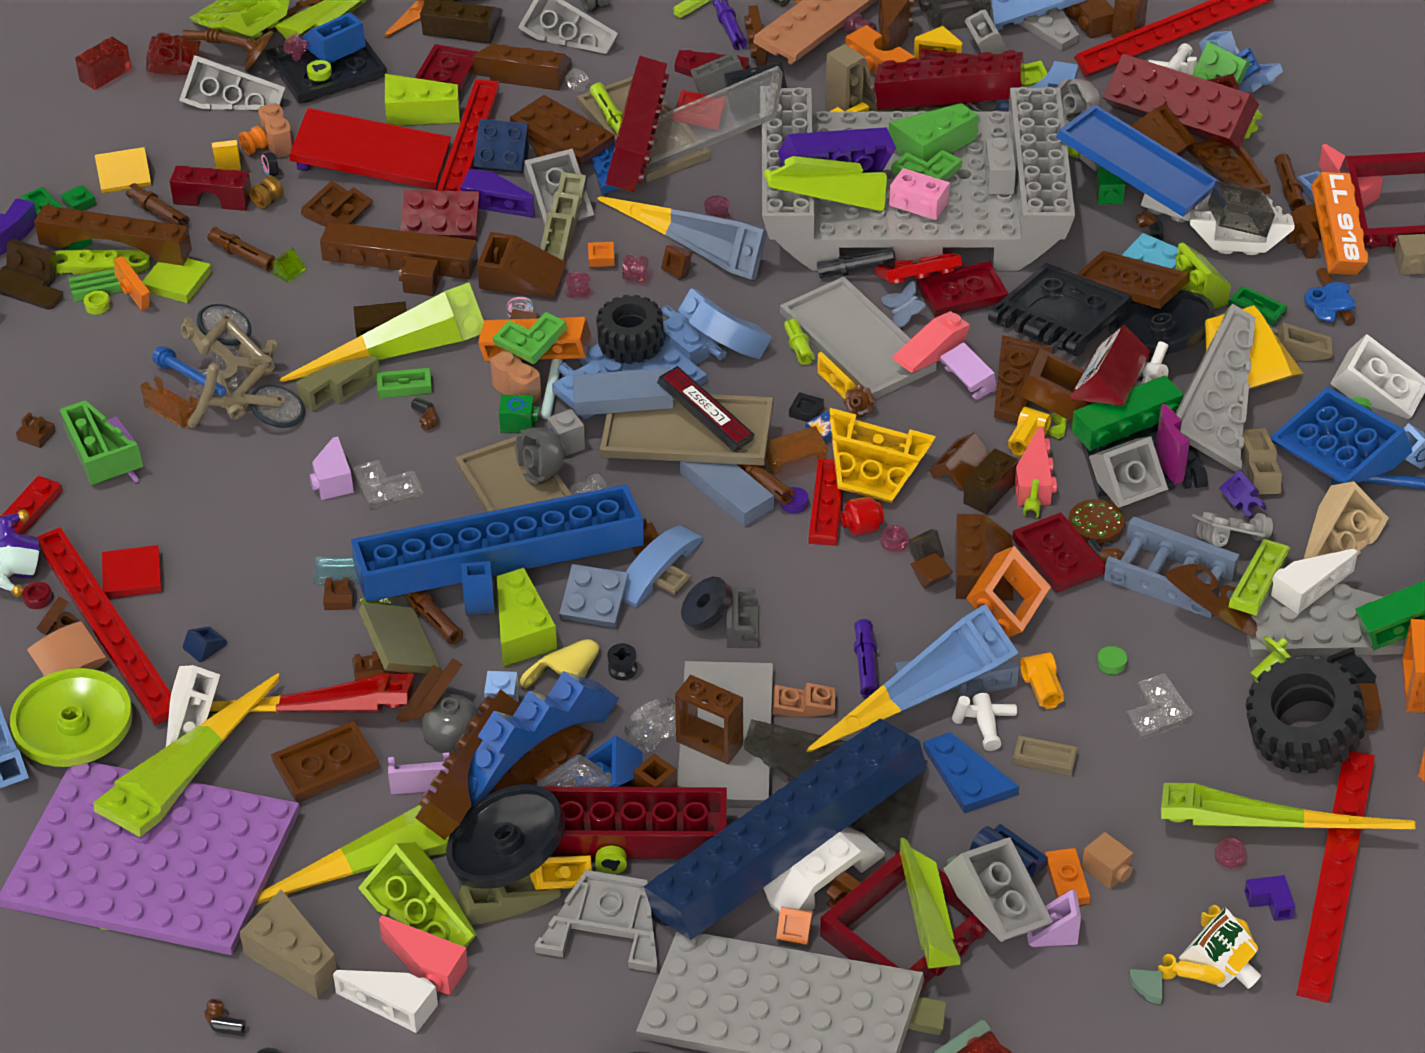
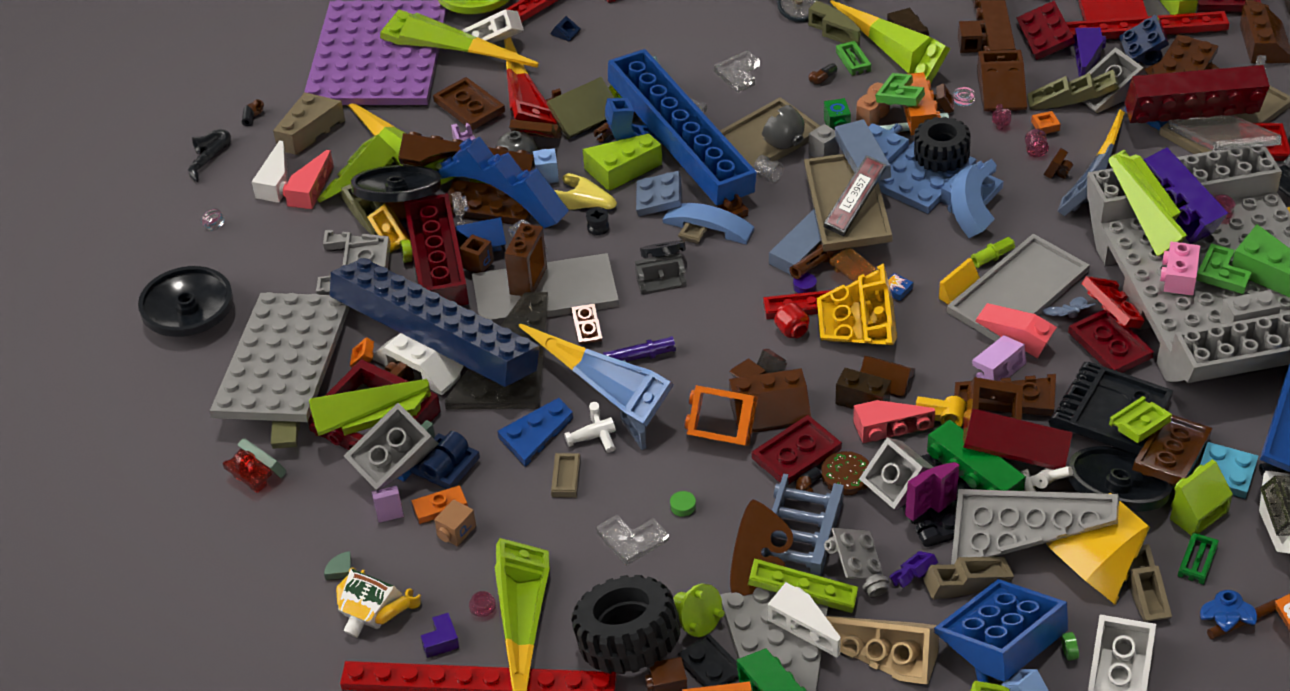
camera: 80 degrees right, 0 degrees up
(331, 472) = (742, 39): lavender slope -> none
(806, 407) = (917, 272): black tile -> none
(844, 264) = (1102, 262): black pin -> none
(859, 401) = (932, 299): reddish brown plant -> none
(894, 538) = (780, 346): clear pink plate -> none
(1033, 502) = (849, 427): lime hand -> none
(1041, 674) = (650, 455): light orange piece -> none
(1099, 284) = (1140, 419): none -> lime plate

